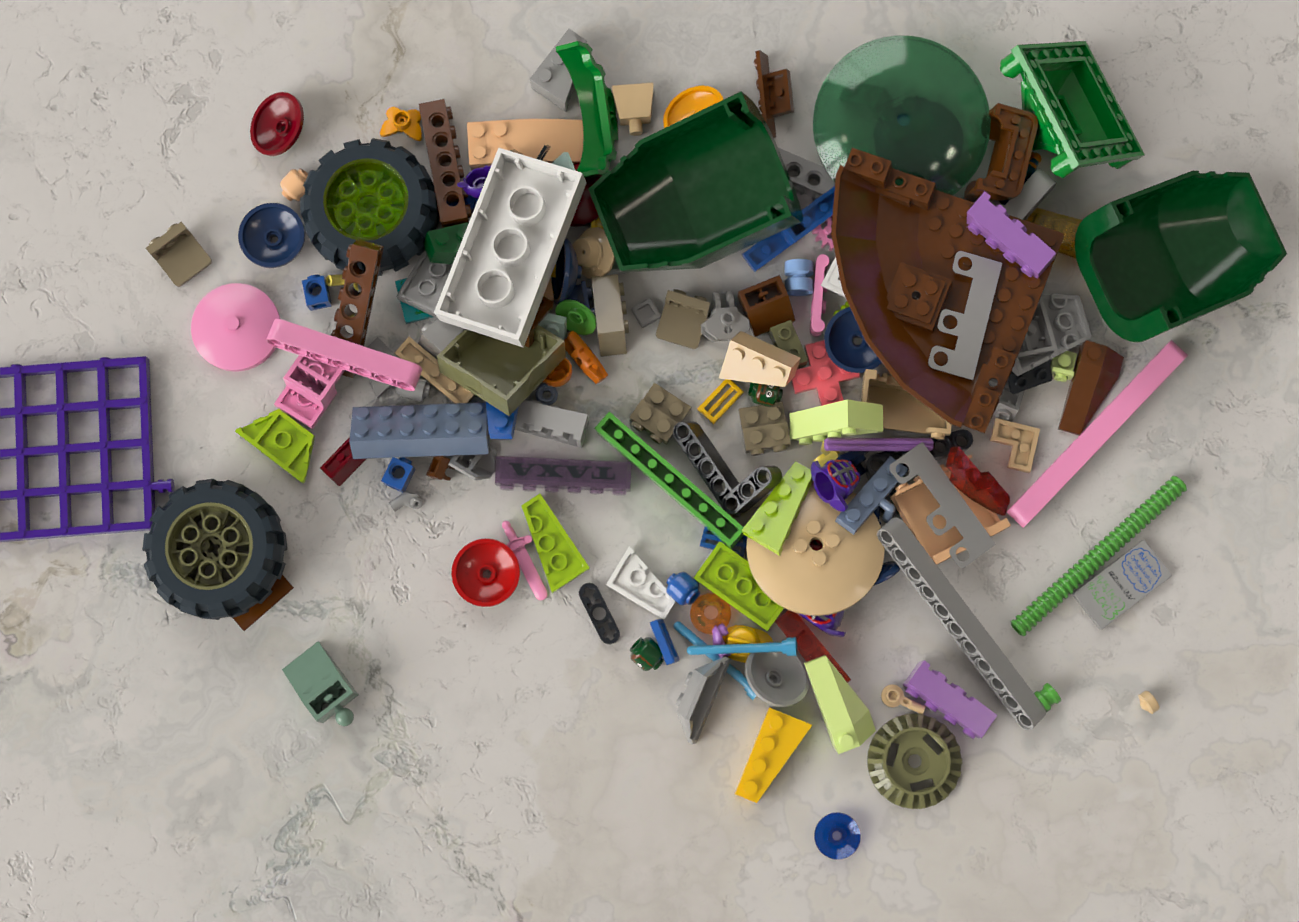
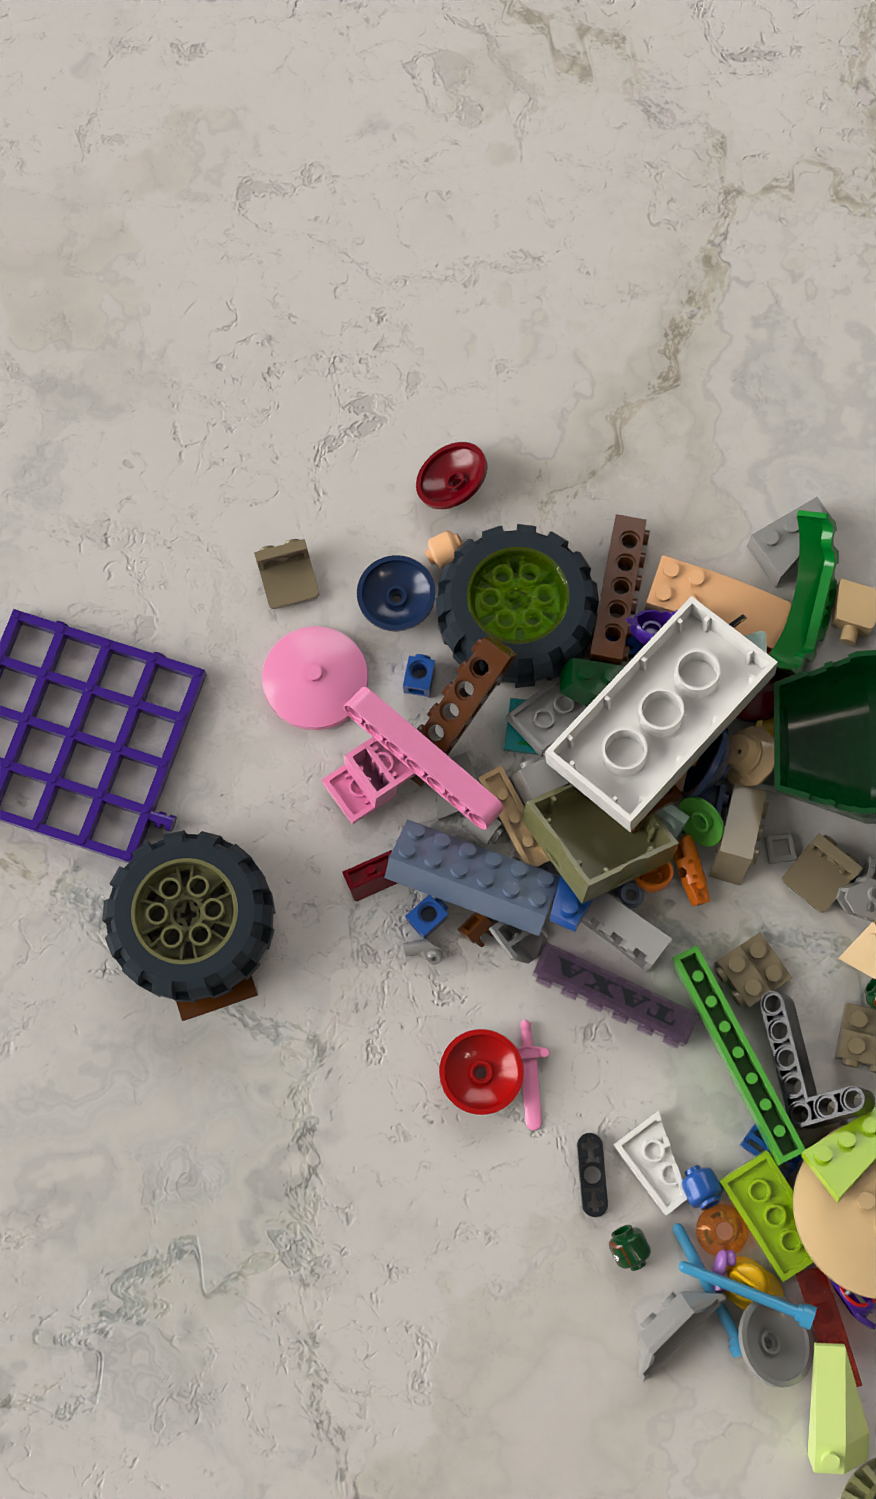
camera: 25 degrees right, 5 degrees down
(281, 441) = (313, 825): lime wing -> none
(319, 682) = (241, 1117): sand green slope -> none
(336, 280) = (447, 671): light yellow arm -> none
(401, 122) = (588, 526): light orange animal -> none
(555, 548) = (571, 1076): lime wing -> none
(664, 641) = (656, 1242): blue tile -> none
(707, 414) = (807, 994): yellow tile -> none
(771, 750) = (731, 1431): yellow wedge -> none

